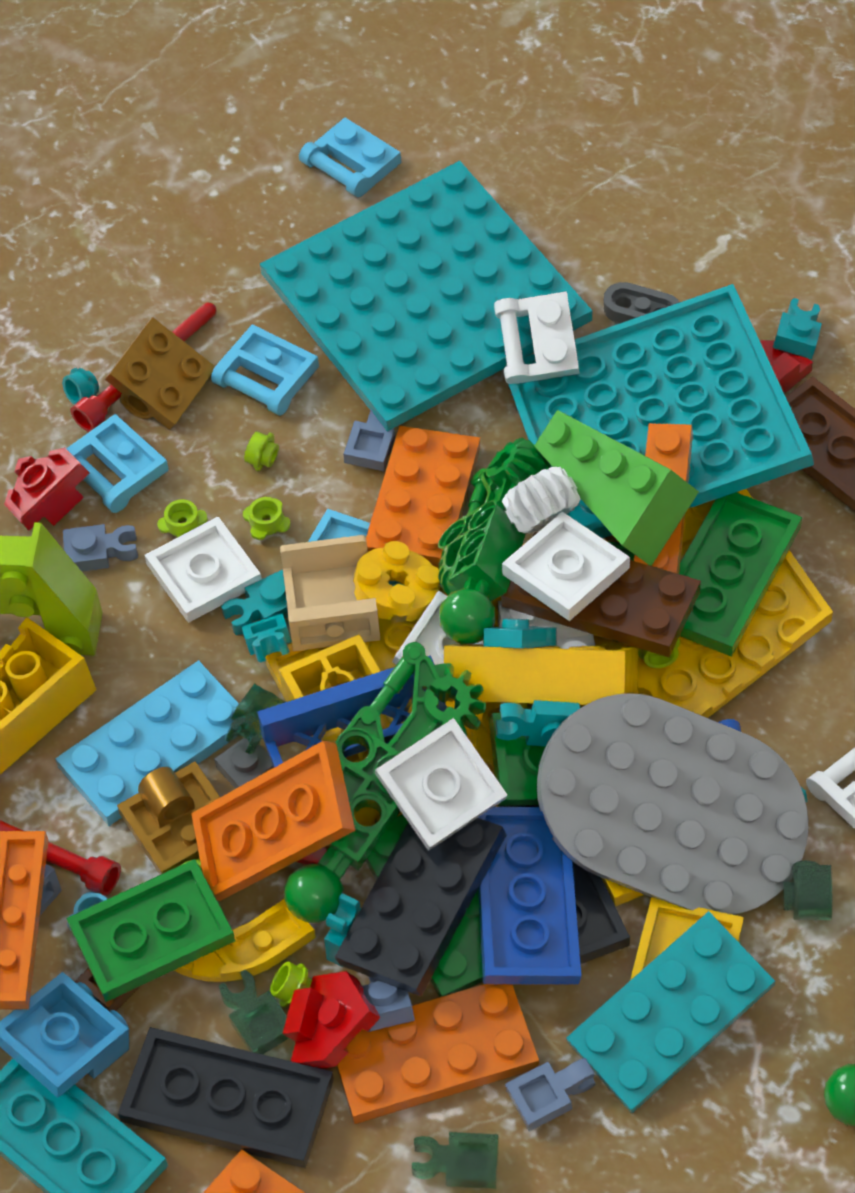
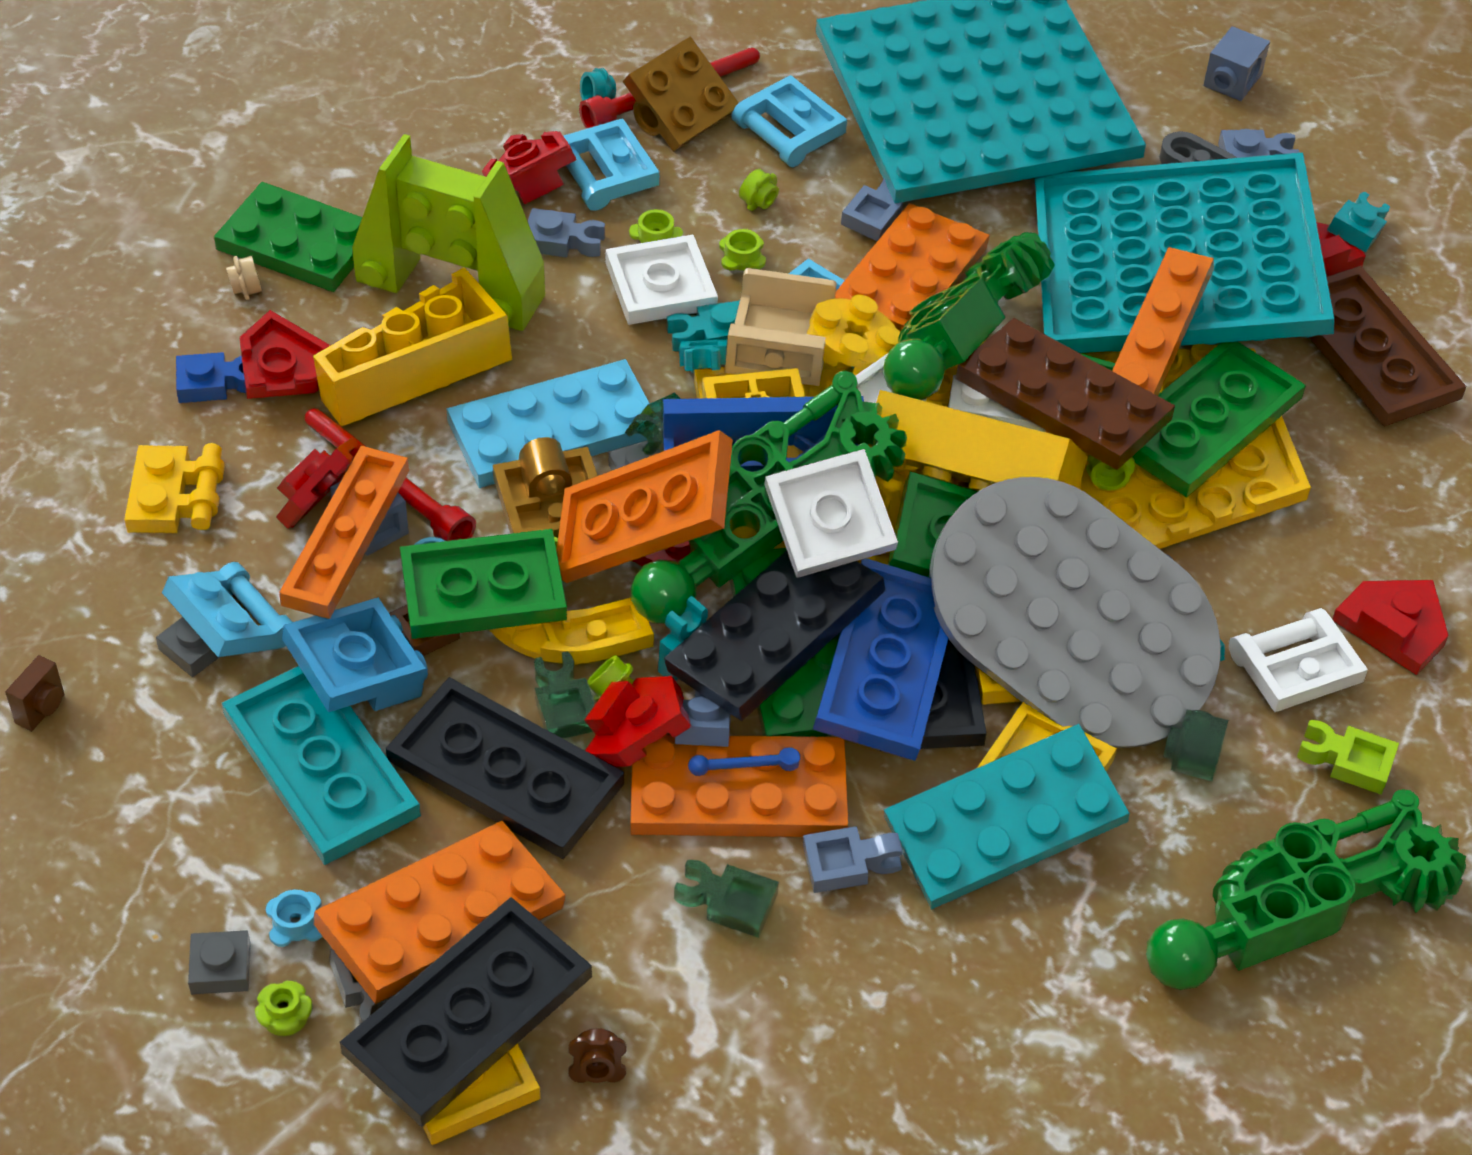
camera: 10 degrees right, 5 degrees down
(469, 1016) = (787, 759): none -> blue hinge
(518, 634) = (963, 397): teal plate -> none
(535, 723) = (948, 488): teal plate -> none
(540, 499) = (1029, 283): white gear -> none
(550, 335) = (1093, 152): white plate -> none
(565, 566) = (1034, 349): white plate -> none
(623, 488) = (1121, 292): bright green wedge -> none
(644, 197) = (1236, 63): none -> sand blue brick
(686, 280) = (1254, 143): none -> sand blue plate

